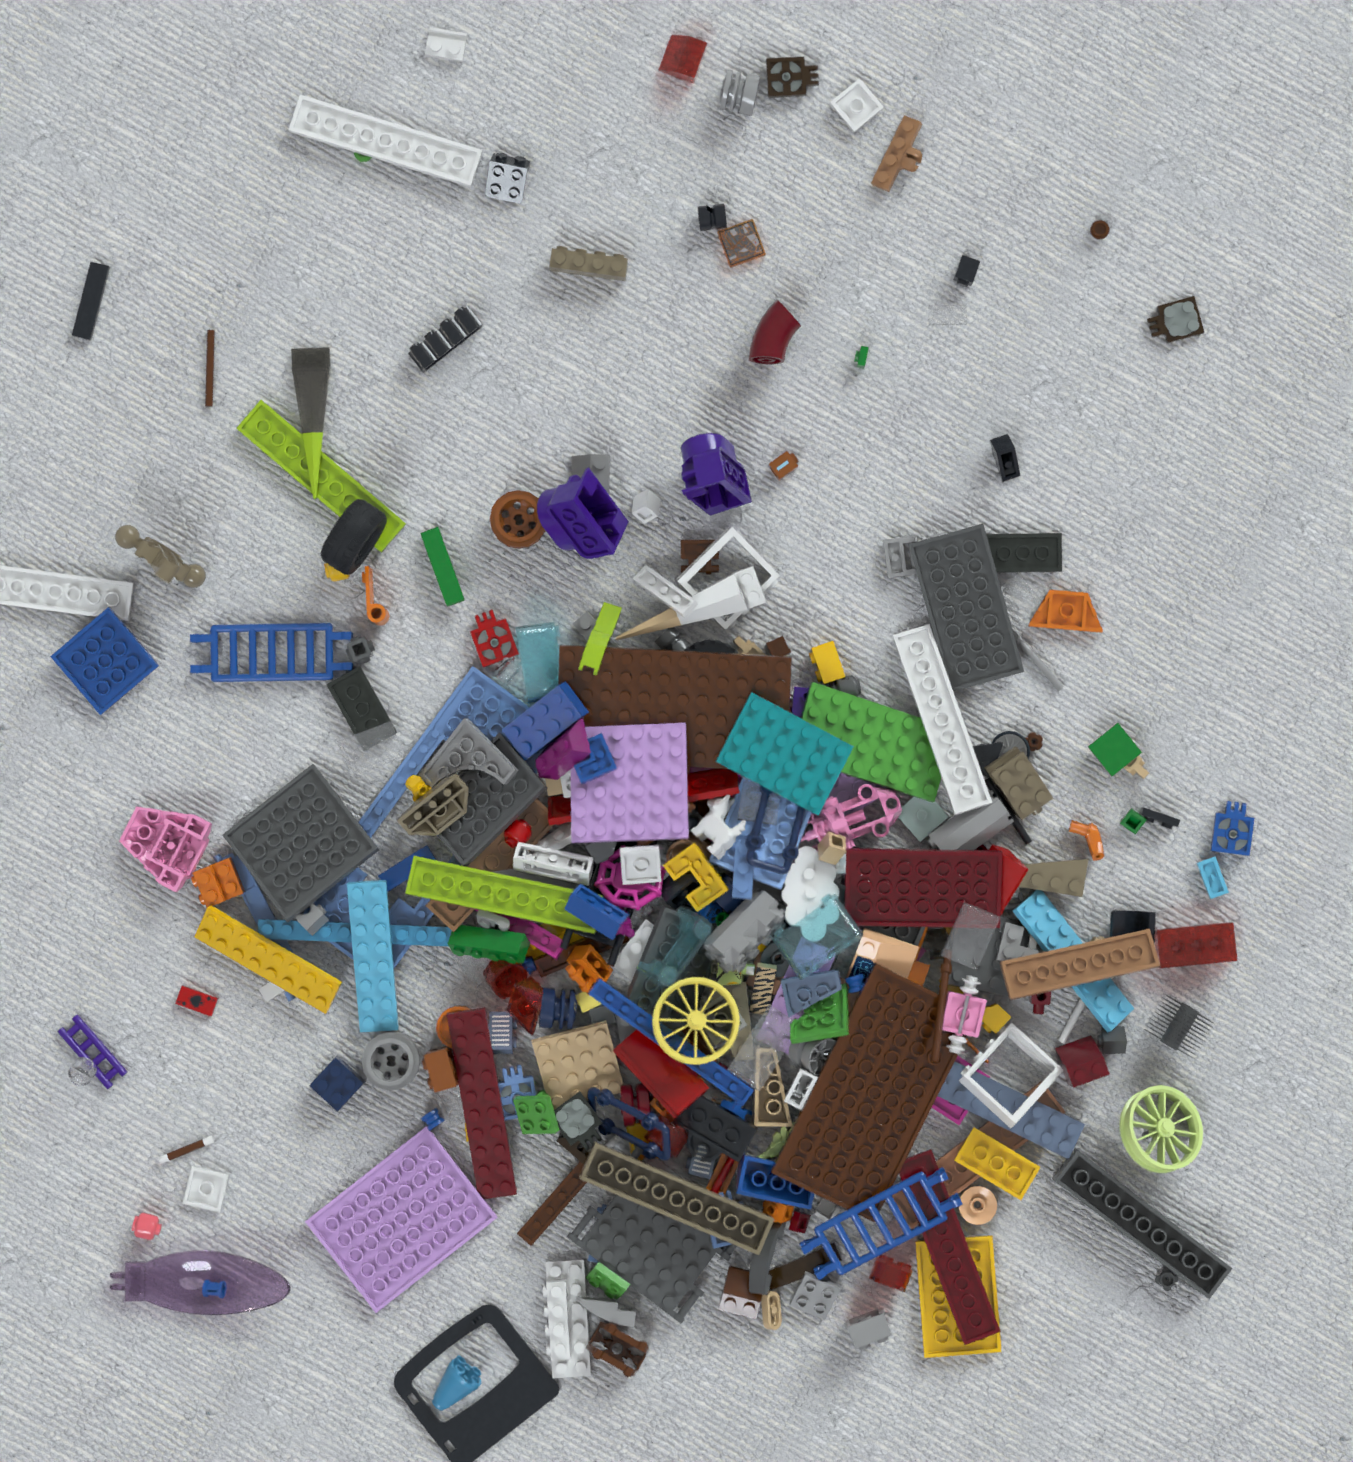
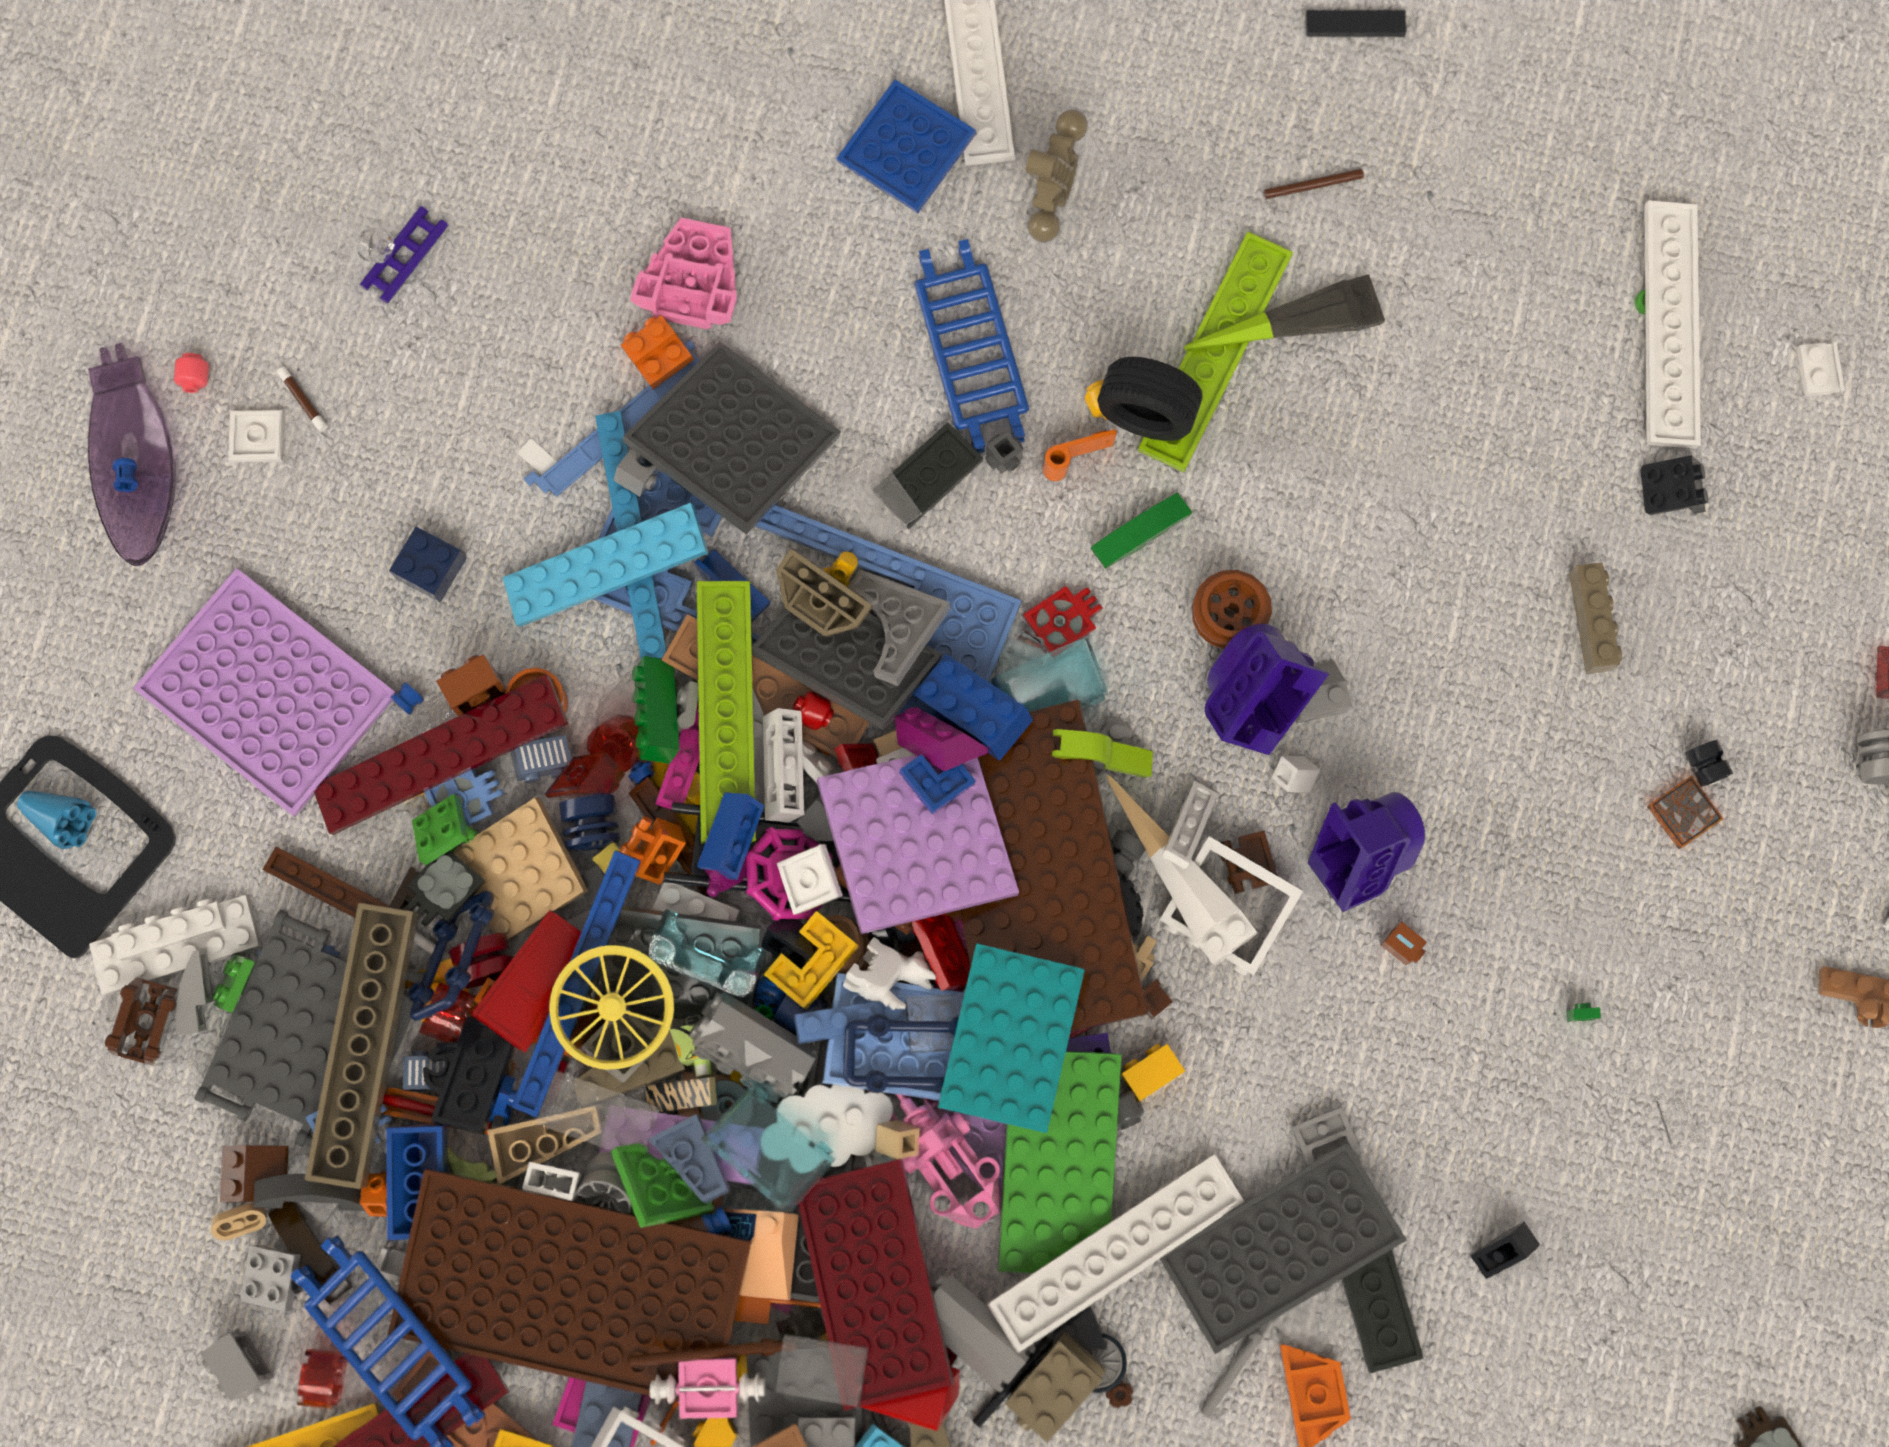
camera: 75 degrees right, 10 degrees down
(196, 1000) = (498, 365): red tile -> none
(268, 959) = (570, 436): yellow plate -> none
(376, 1075) = (480, 640): light grey wheel -> none
(445, 339) = (1439, 461): black brick -> none
(773, 335) = (1576, 884): dark red brick -> none
(799, 1222) = (369, 1230): dark red plate -> none
(921, 817) = (973, 1260): light aqua plate -> none
(966, 271) = (1746, 1129): black brick -> none
(1099, 229) = (1863, 1304): reddish brown plate -> none

